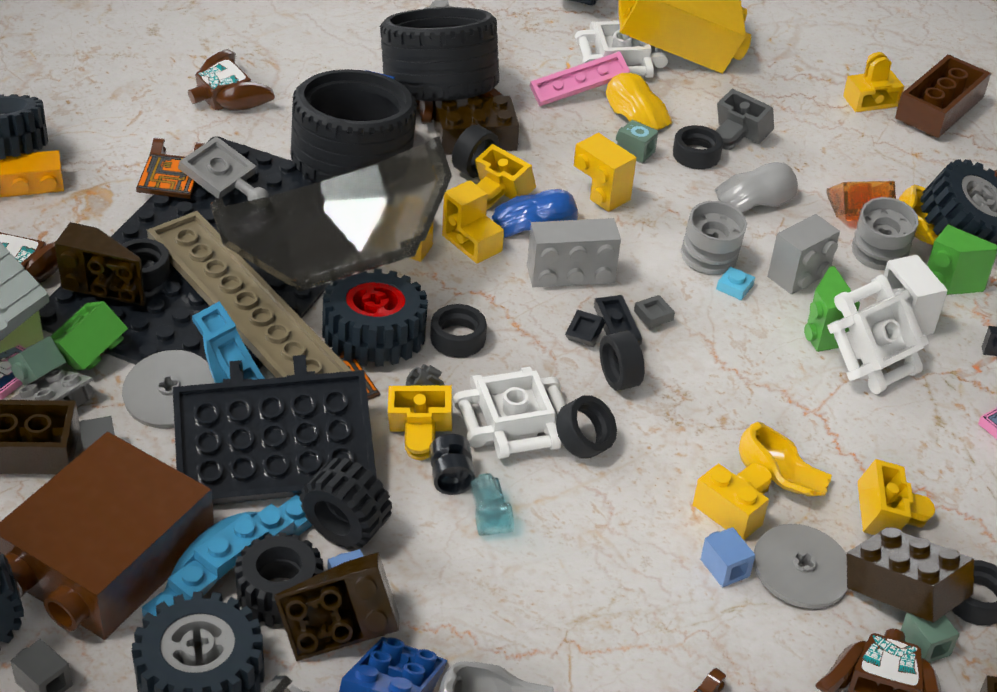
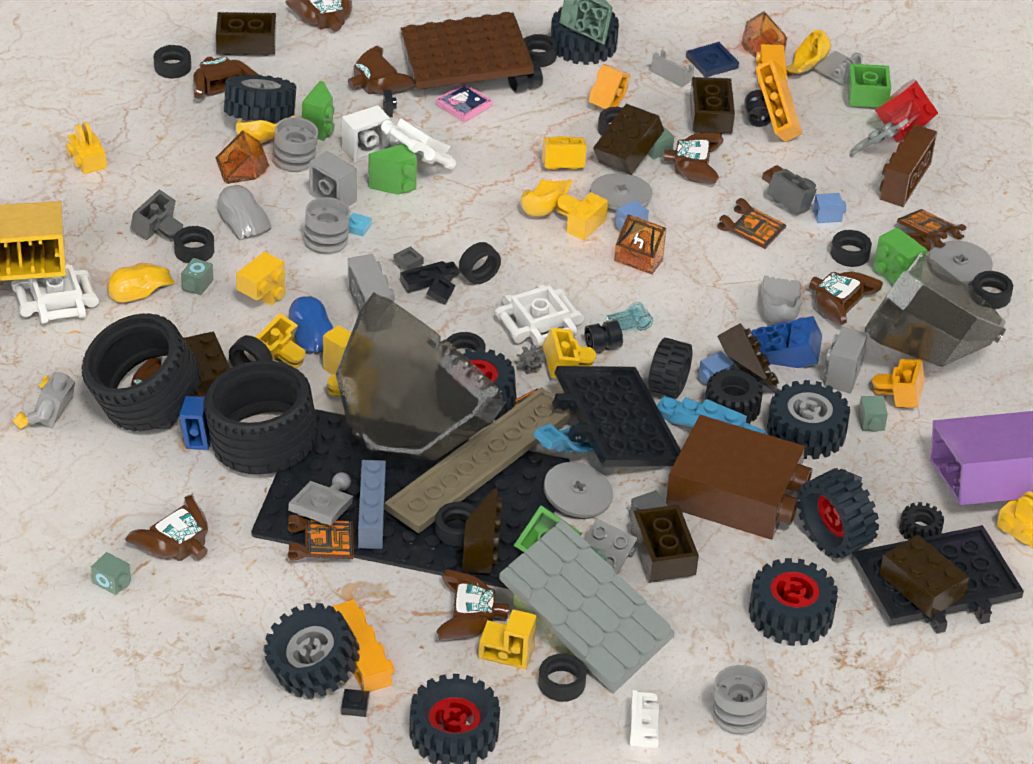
camera: 100 degrees left, 0 degrees up
(177, 196) = (371, 504): none -> sand blue brick
(189, 43) = (111, 573): none -> sand green brick
(578, 79) = (108, 298): bright pink plate -> none
(601, 418) = (550, 275): black tyre -> none
(643, 543) = (640, 244): none -> clear orange slope
(942, 95) = (106, 114): reddish brown brick -> none

